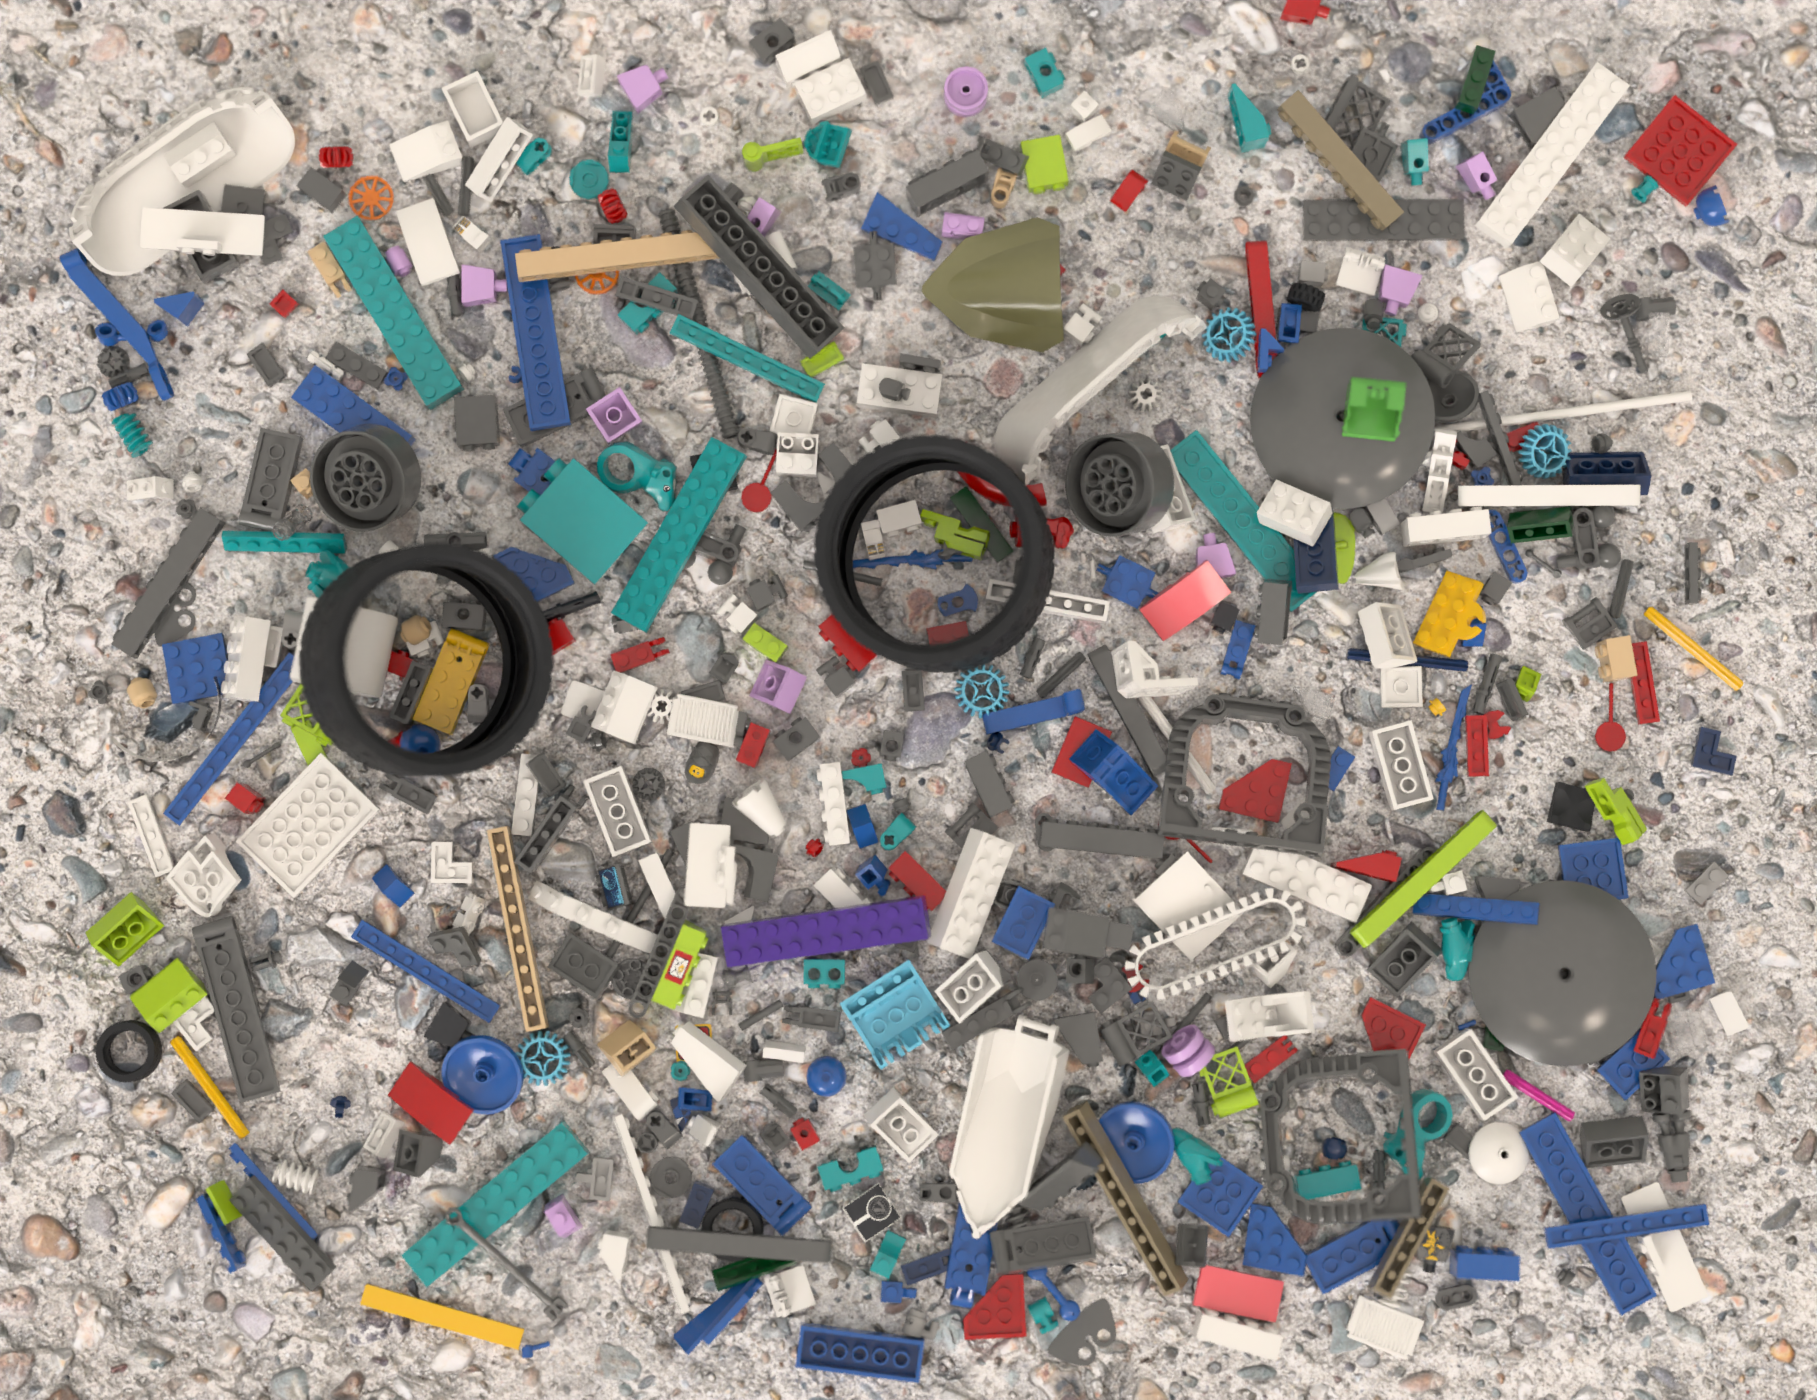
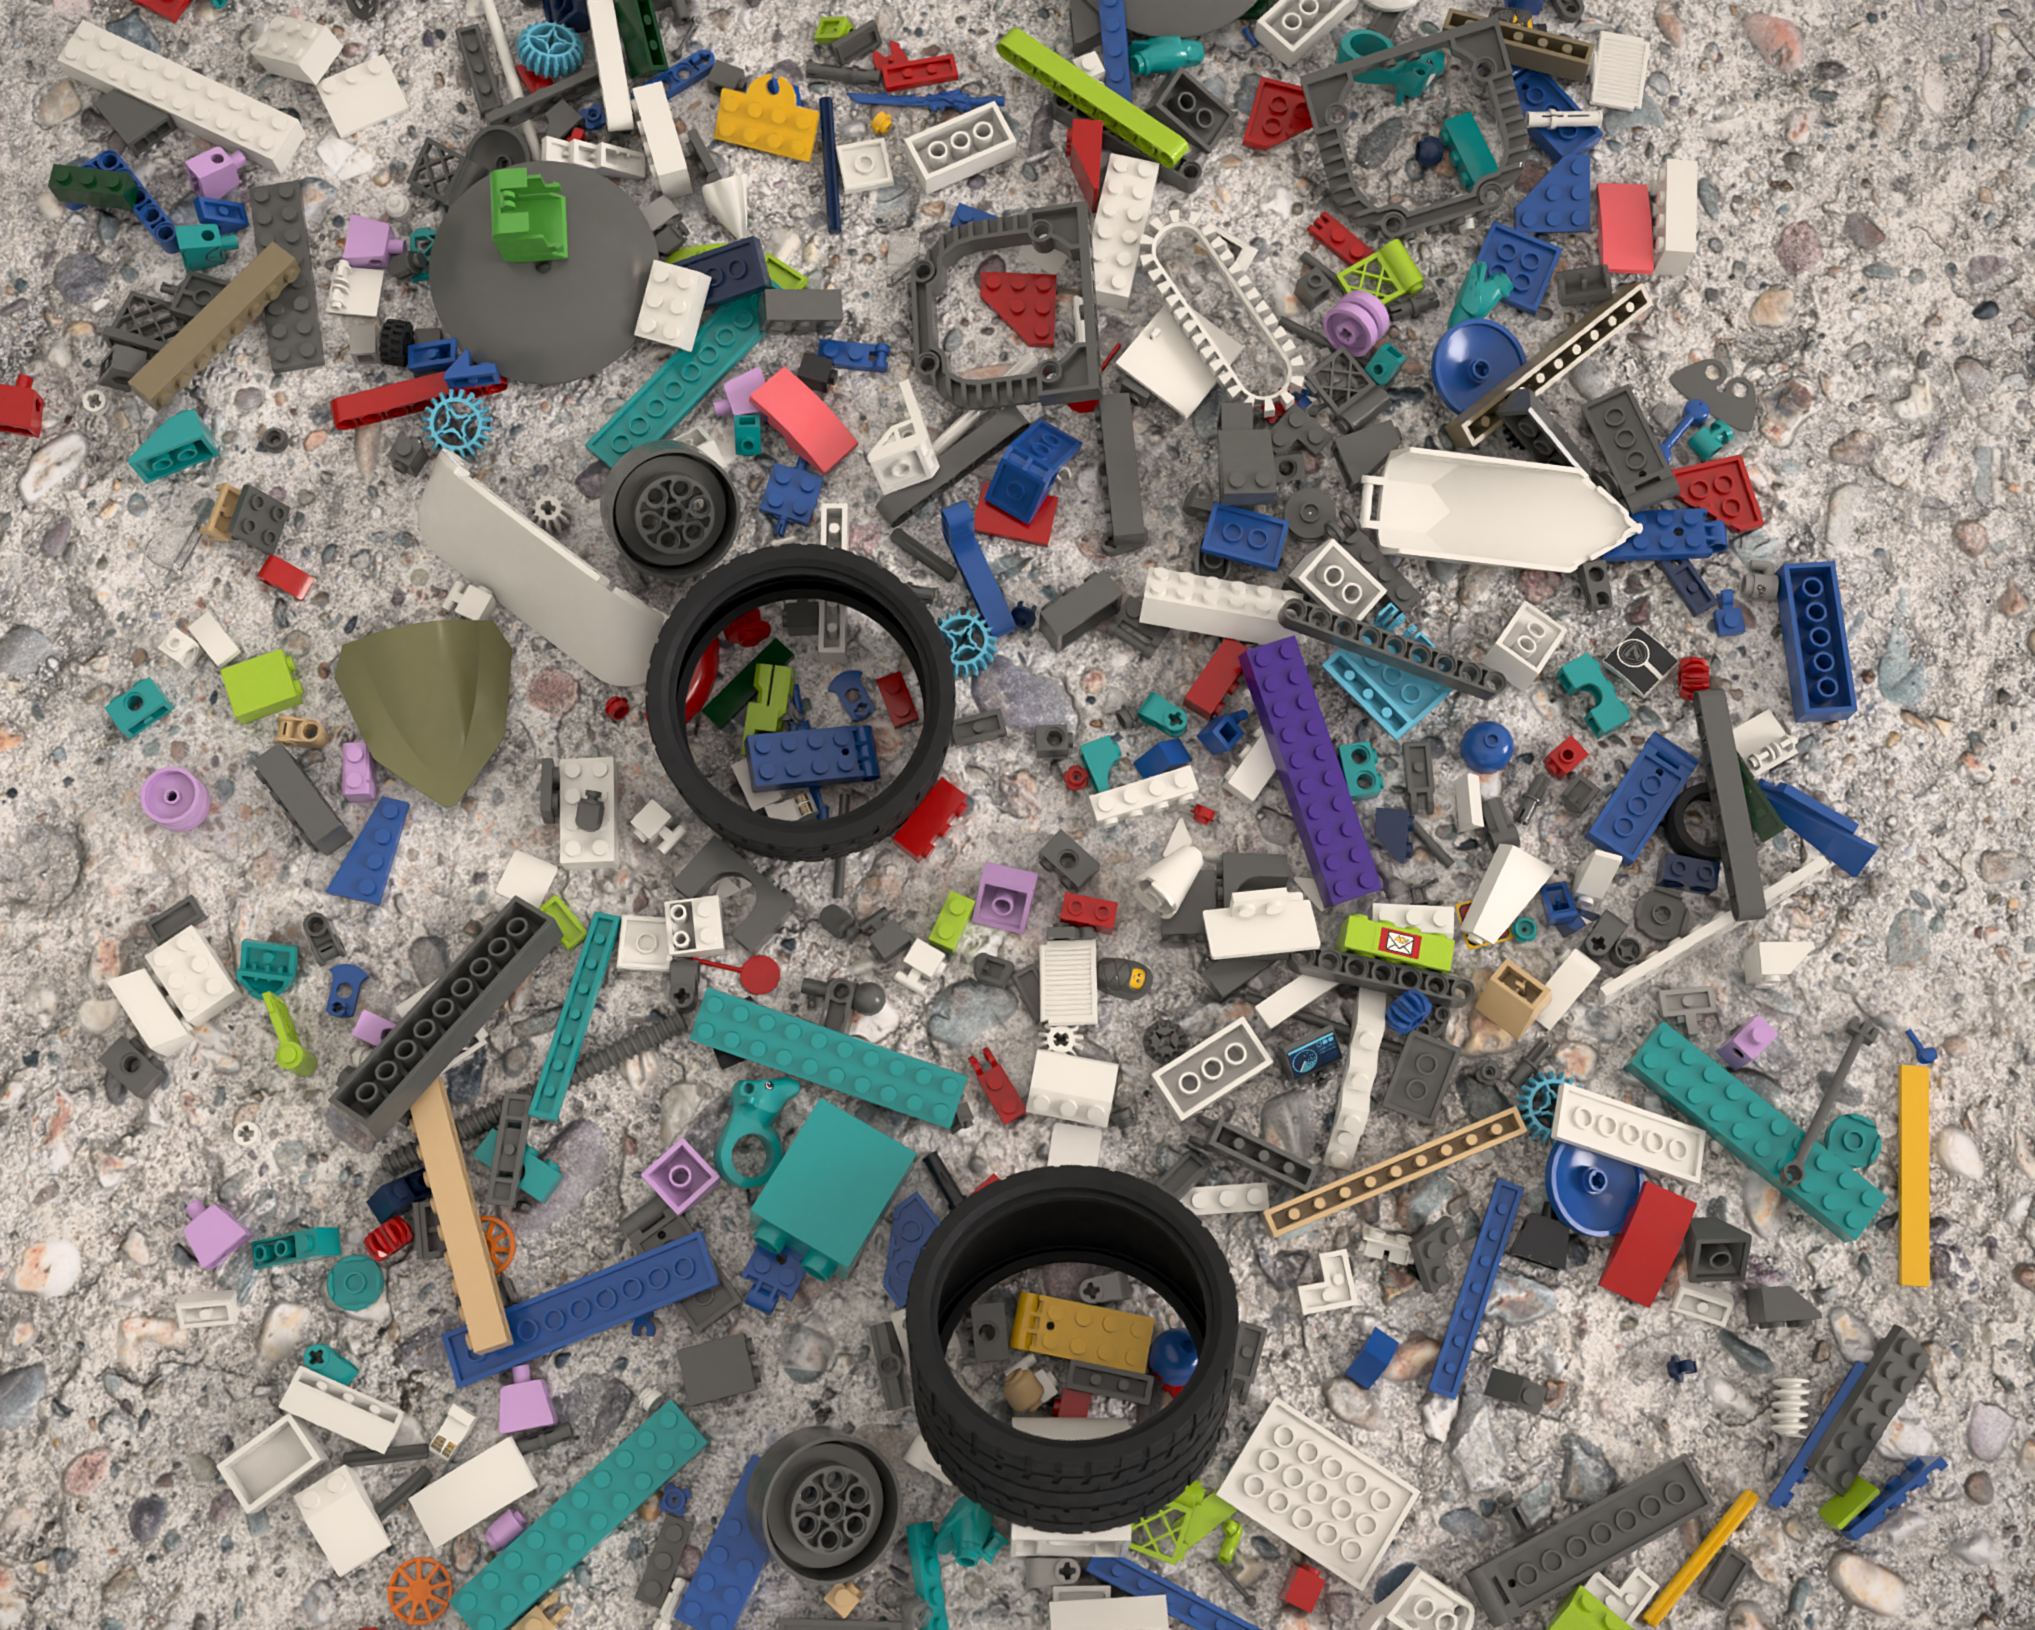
camera: 105 degrees left, 10 degrees down
(293, 760) = (1233, 1533): none -> lime arm
(476, 1277) = (1853, 1140): none -> teal tile
(509, 1106) = (1628, 1134): none -> white plate
(580, 727) = (1109, 1144): dark grey plate -> none
(628, 963) = (1408, 1011): none -> blue gear
(642, 216) = (398, 1195): none -> dark blue slope
(771, 987) = (1393, 830): none -> dark blue slope
(782, 560) = (838, 922): none -> dark grey arm
(797, 825) = (1178, 839): none -> white sticker
(813, 197) = (342, 975): none -> blue piece
(828, 290) = (468, 927): teal hinge -> none
(839, 680) = (982, 822): dark grey brick -> none
(848, 1248) = (1692, 676): none -> red gear
(860, 338) = (526, 878): none -> white sticker
(875, 265) = (426, 875): dark grey plate -> none
(887, 1254) = (1687, 633): teal arch -> none
(904, 1023) = (1404, 647): none -> dark grey beam
(909, 561) = (811, 758): none -> blue hinge
(979, 423) = (617, 707): none -> red plate
(1002, 155) = (257, 737): dark grey plate -> none
(1181, 555) = (747, 434): none -> teal brick
(1269, 1015) = (1290, 236): white bracket -> none
(1315, 606) = (783, 274): none -> lime tile
(1318, 87) = (120, 366): none -> dark grey brick
(1341, 1238) = (1563, 119): none -> white pin
(1379, 1169) = (1443, 102): dark grey axle -> none
(1387, 635) = (806, 187): white slope -> none
(1442, 175) = (226, 214): none -> blue slope
(1540, 393) = (479, 68): none -> dark grey tile

